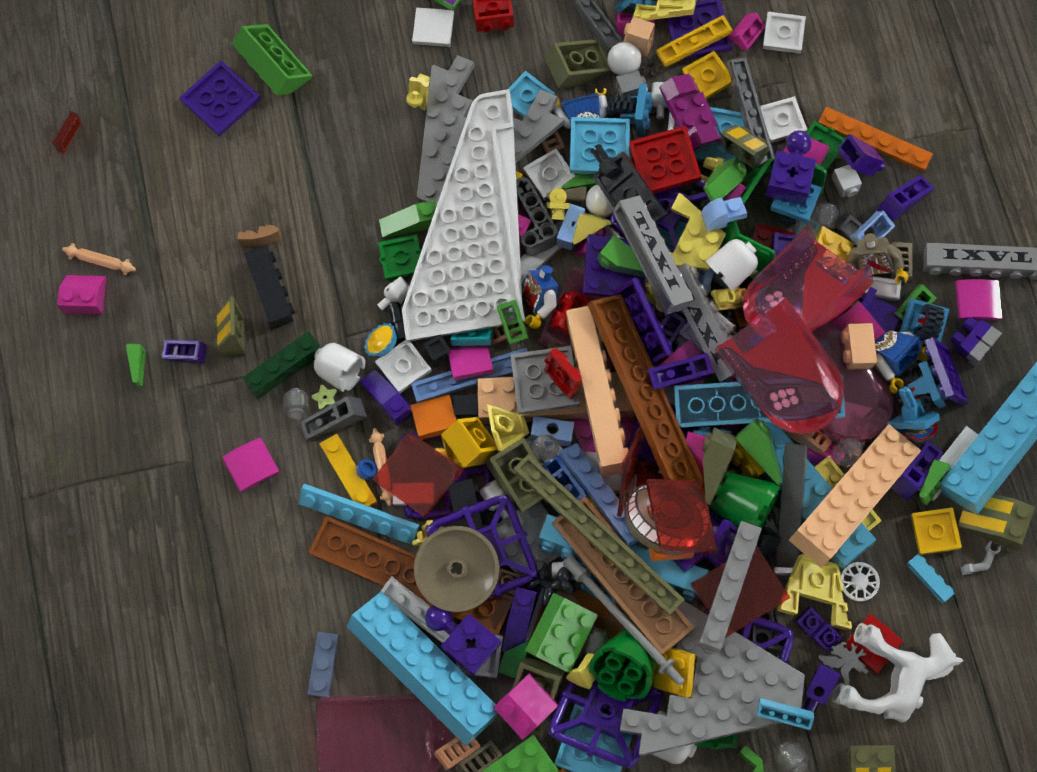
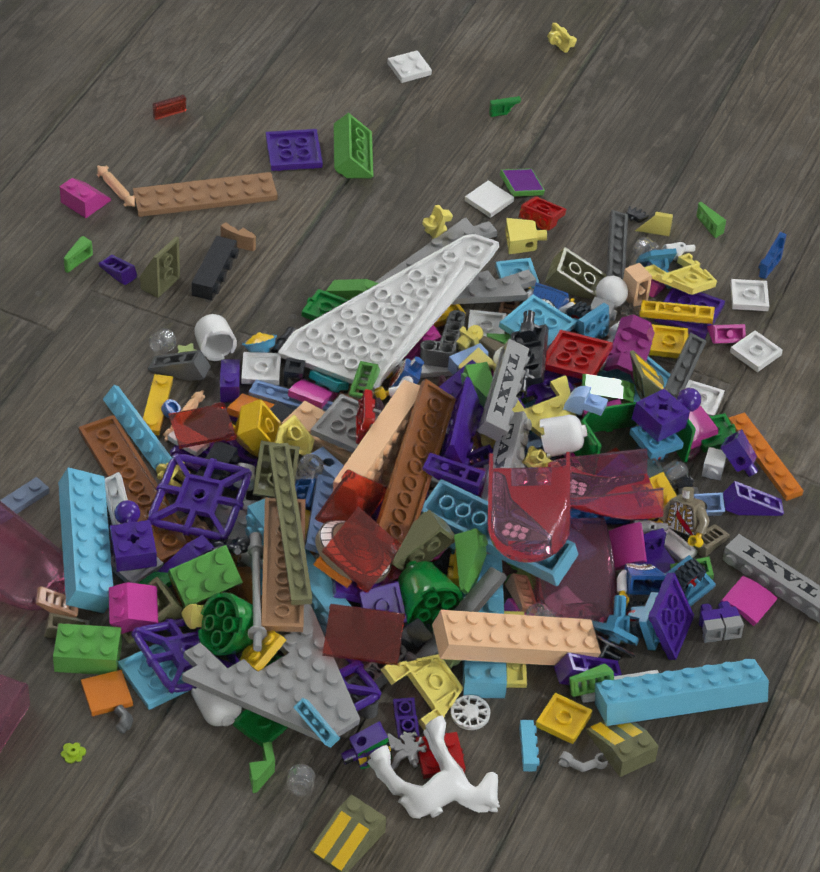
camera: 30 degrees right, 25 degrees down
(184, 208) = (205, 194): none -> medium nougat plate
(250, 464) = (93, 356): dark pink slope -> none
(282, 365) = (172, 313): dark green brick -> none
(394, 292) = (297, 321): white piece -> none
(456, 568) = (168, 485): dark tan dish -> none
(497, 49) = (523, 235): none -> light yellow torso
(729, 587) = (355, 618): light grey brick -> none
(859, 346) = (612, 549): light nougat brick -> none

